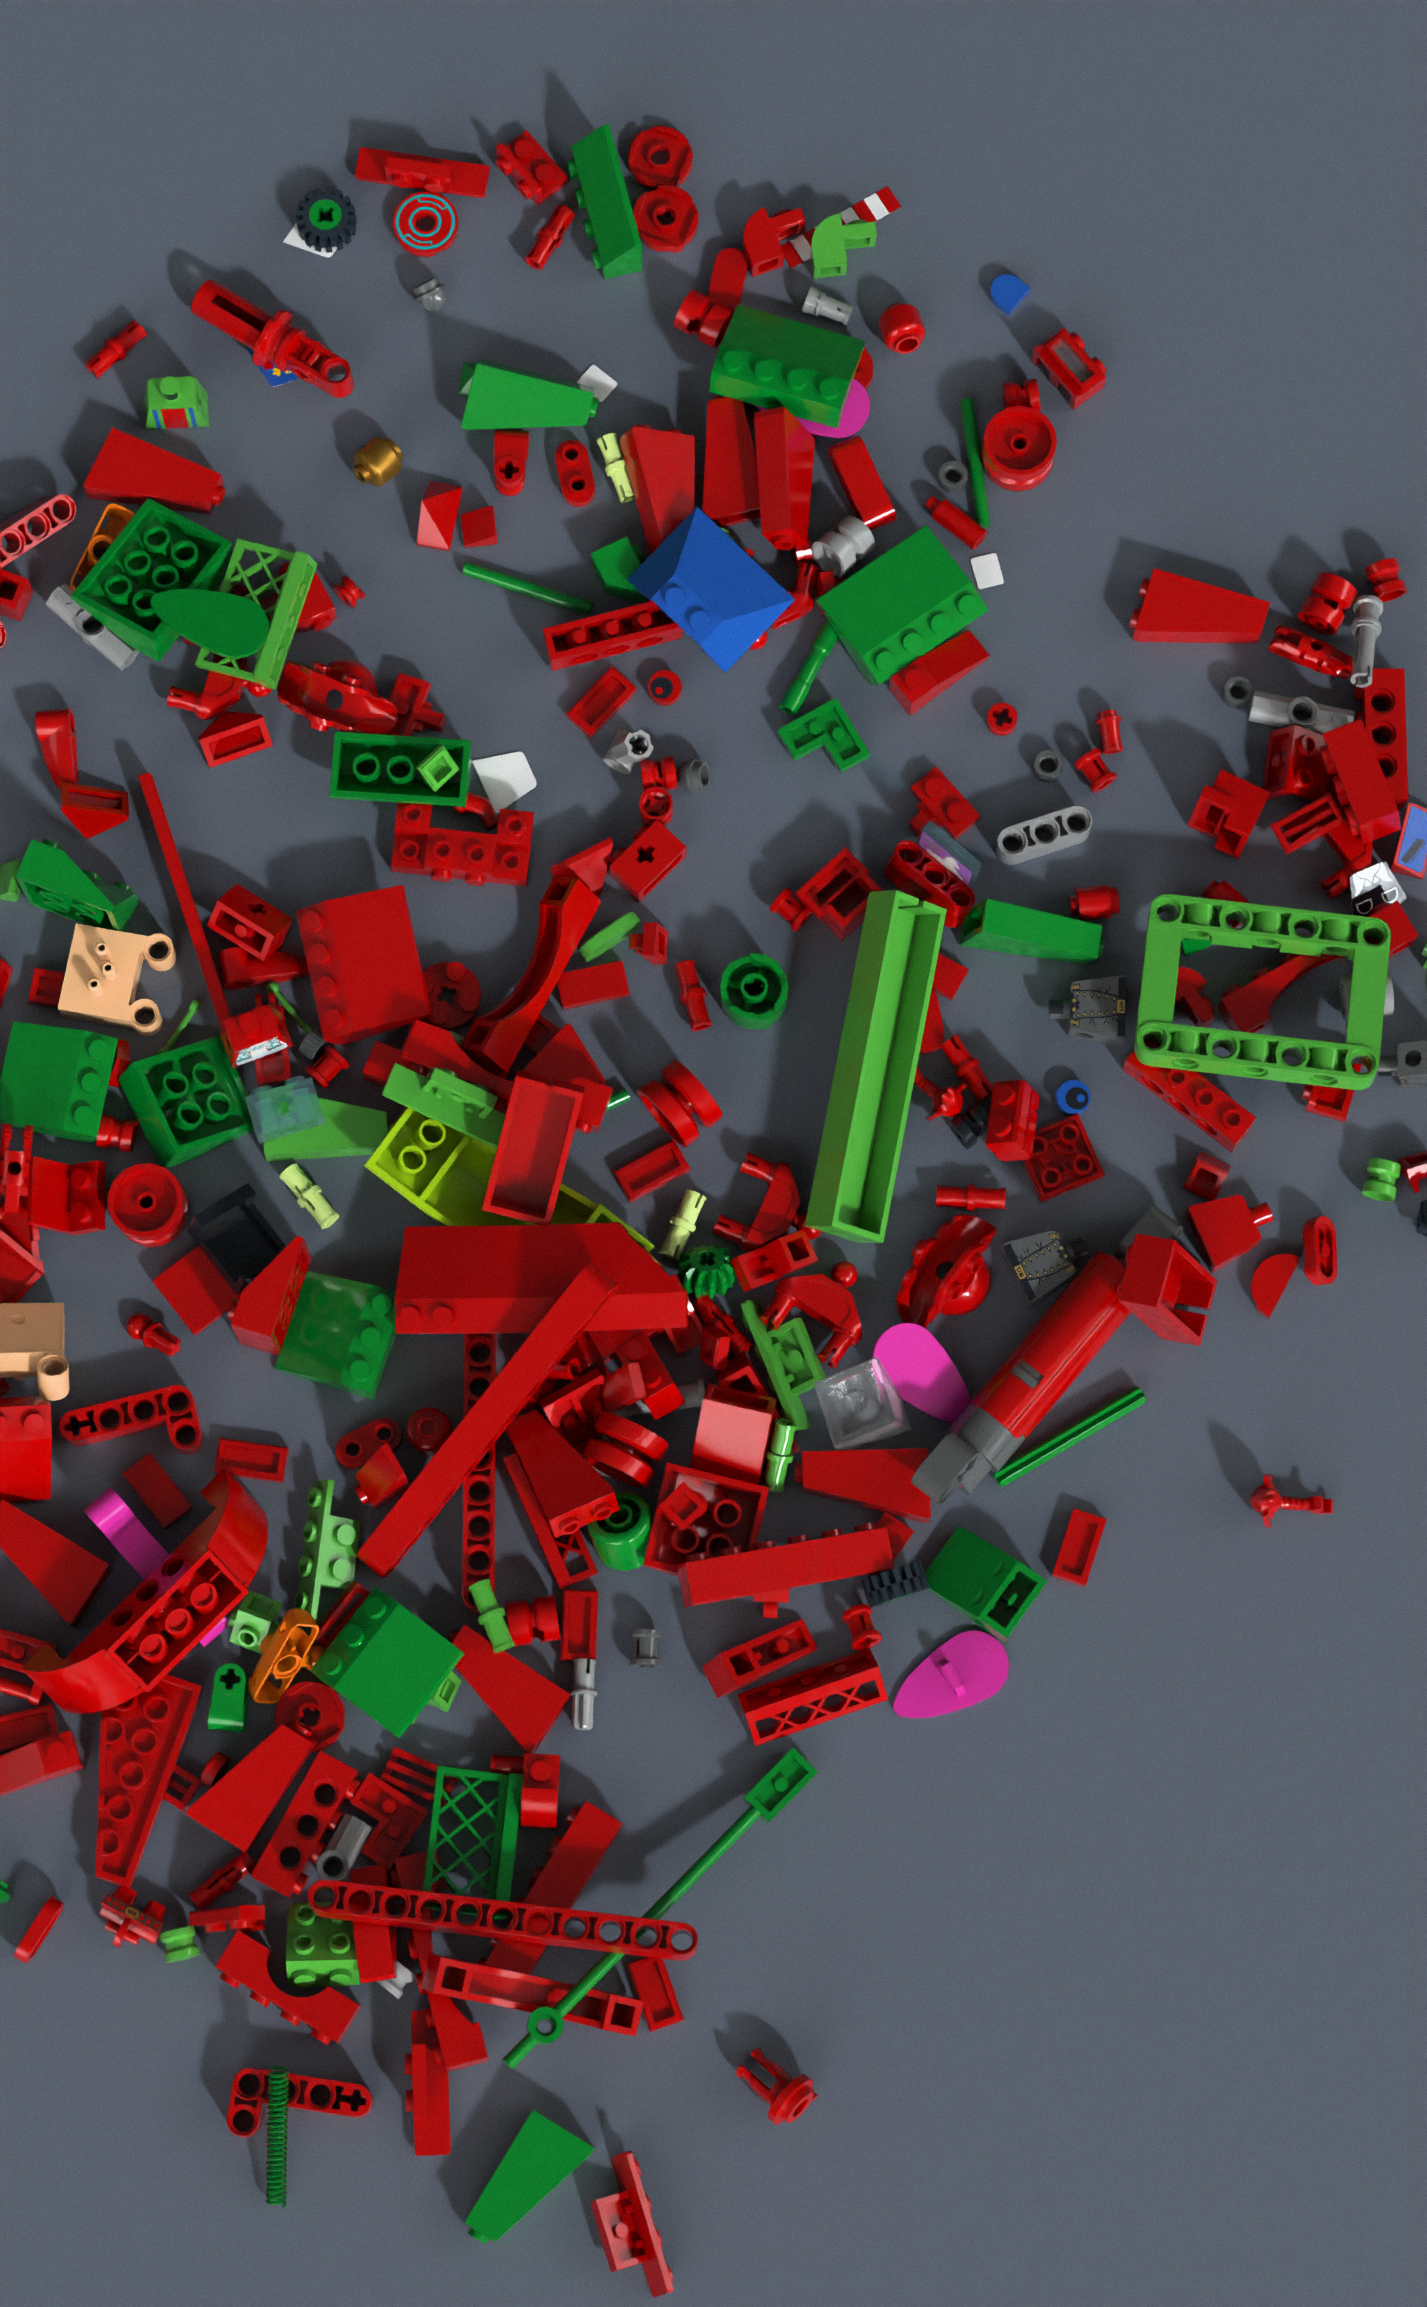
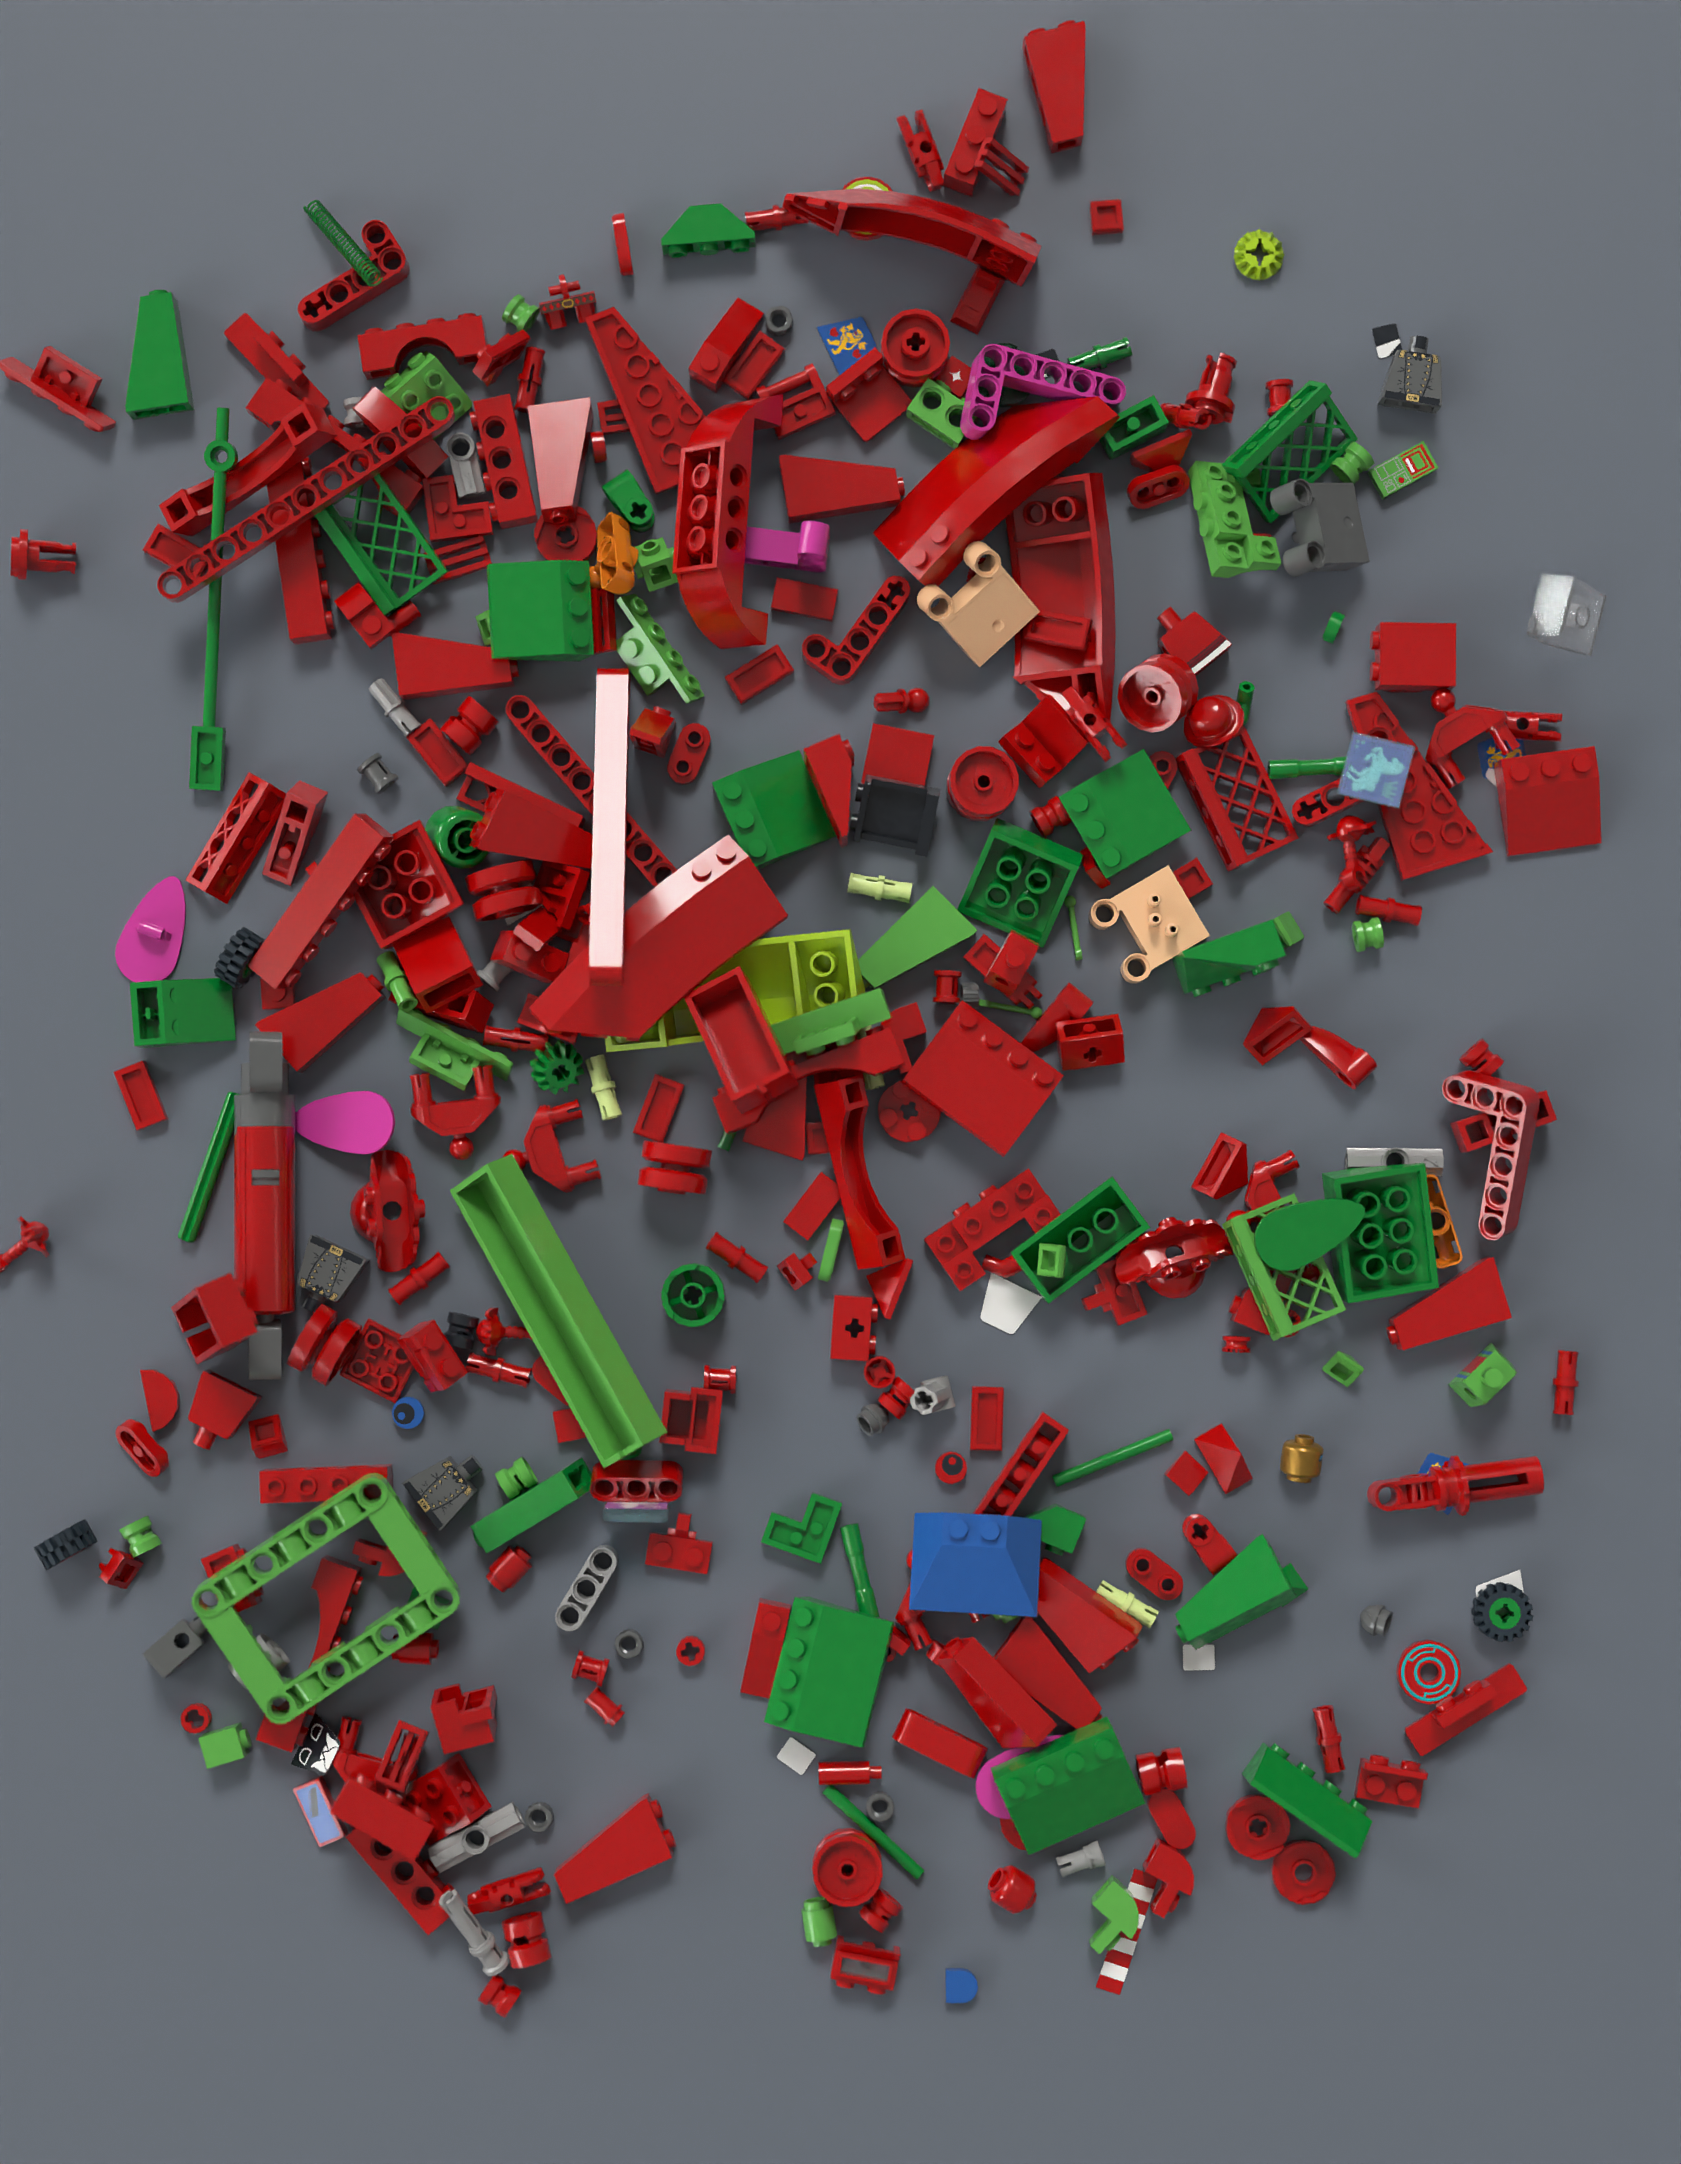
camera: 135 degrees right, 10 degrees up
(185, 897) = (1148, 1020): red tile -> none
(280, 503) = (1343, 1368): none -> bright green slope
(302, 1105) = (947, 906): clear light blue brick -> none
(428, 1430) = (652, 793): red head -> none
(491, 1616) = (495, 700): bright green pin -> none
(682, 1506) = (425, 881): red tile -> none
(714, 1347) = (503, 1016): red tile -> none
(774, 1260) = (514, 1116): red brick -> none
(843, 546) = (912, 1678): light grey wheel -> none
(861, 1406) = (367, 1061): clear slope -> none
(861, 1627) = (242, 911): red bush -> none
(1027, 968) = (516, 1478): none -> bright green wheel
(1078, 428) = (819, 1921): none -> bright green brick
(1094, 1202) = (324, 1345): none -> red wheel

